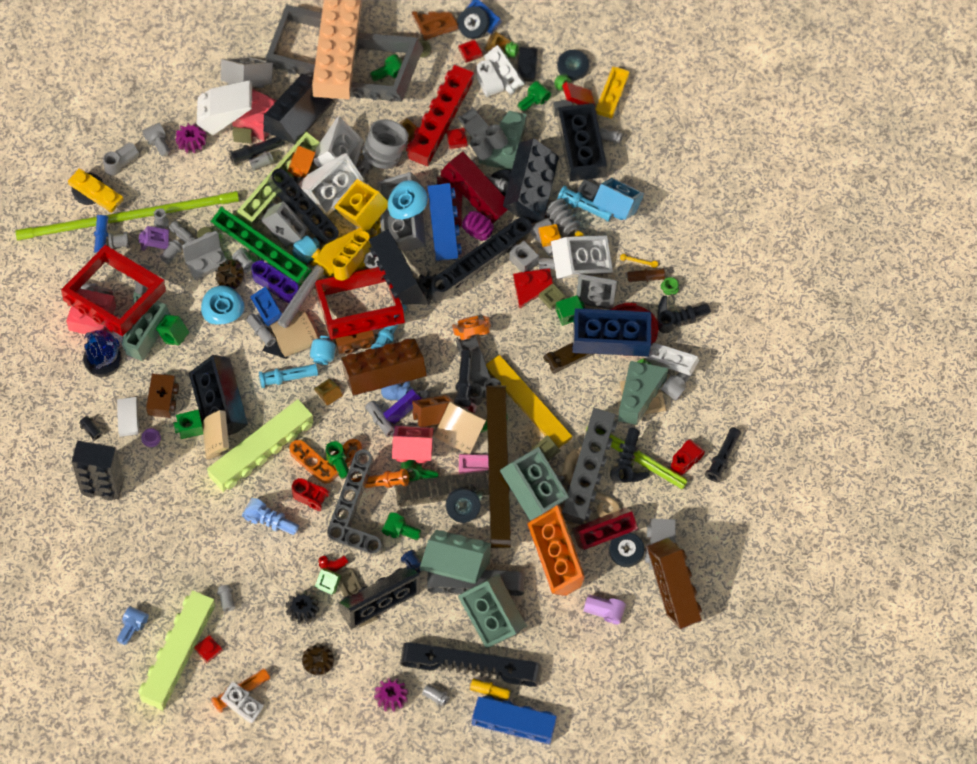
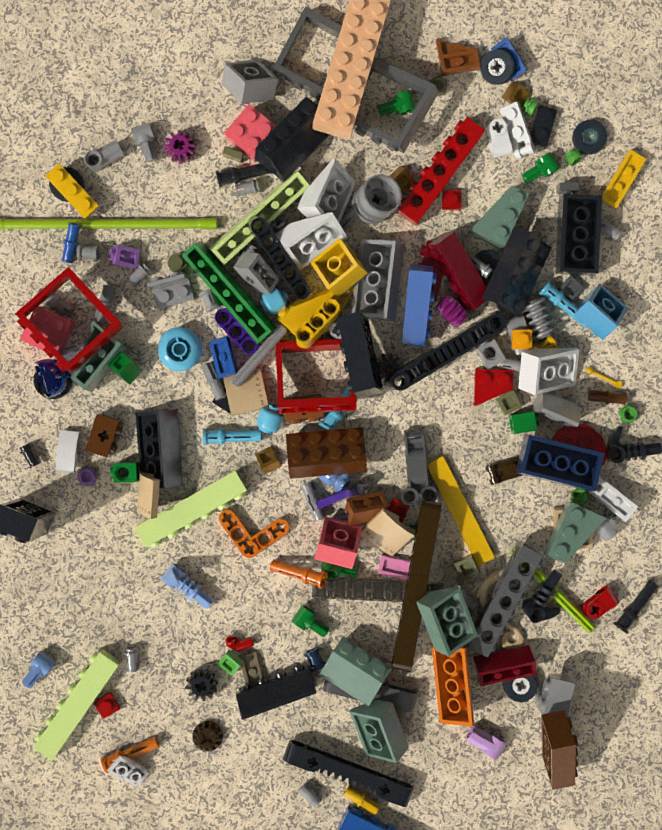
camera: 15 degrees right, 25 degrees up
(161, 220) = (137, 240): light grey pin -> none
(181, 232) = (155, 258): light grey axle -> none
(223, 105) = (218, 121): white slope -> none
(236, 269) = (199, 311): dark brown gear -> none
(301, 162) = (285, 209): orange brick -> none
(312, 496) = (230, 570): red piece -> none
(337, 460) = (263, 546): green axle -> none
(351, 507) = (264, 595): dark grey beam -> none
(397, 700) = (262, 782): magenta gear -> none
(407, 200) = (385, 279): medium azure hat -> none
(463, 515) = (367, 613): black bush -> none
(464, 386) = (400, 494): black pin -> none
(470, 51) = (487, 99): red plate -> none
(471, 326) = (415, 430): orange plate -> none
(484, 137) = (480, 218): dark grey piece -> none
(577, 94) = (587, 178): red tile -> none

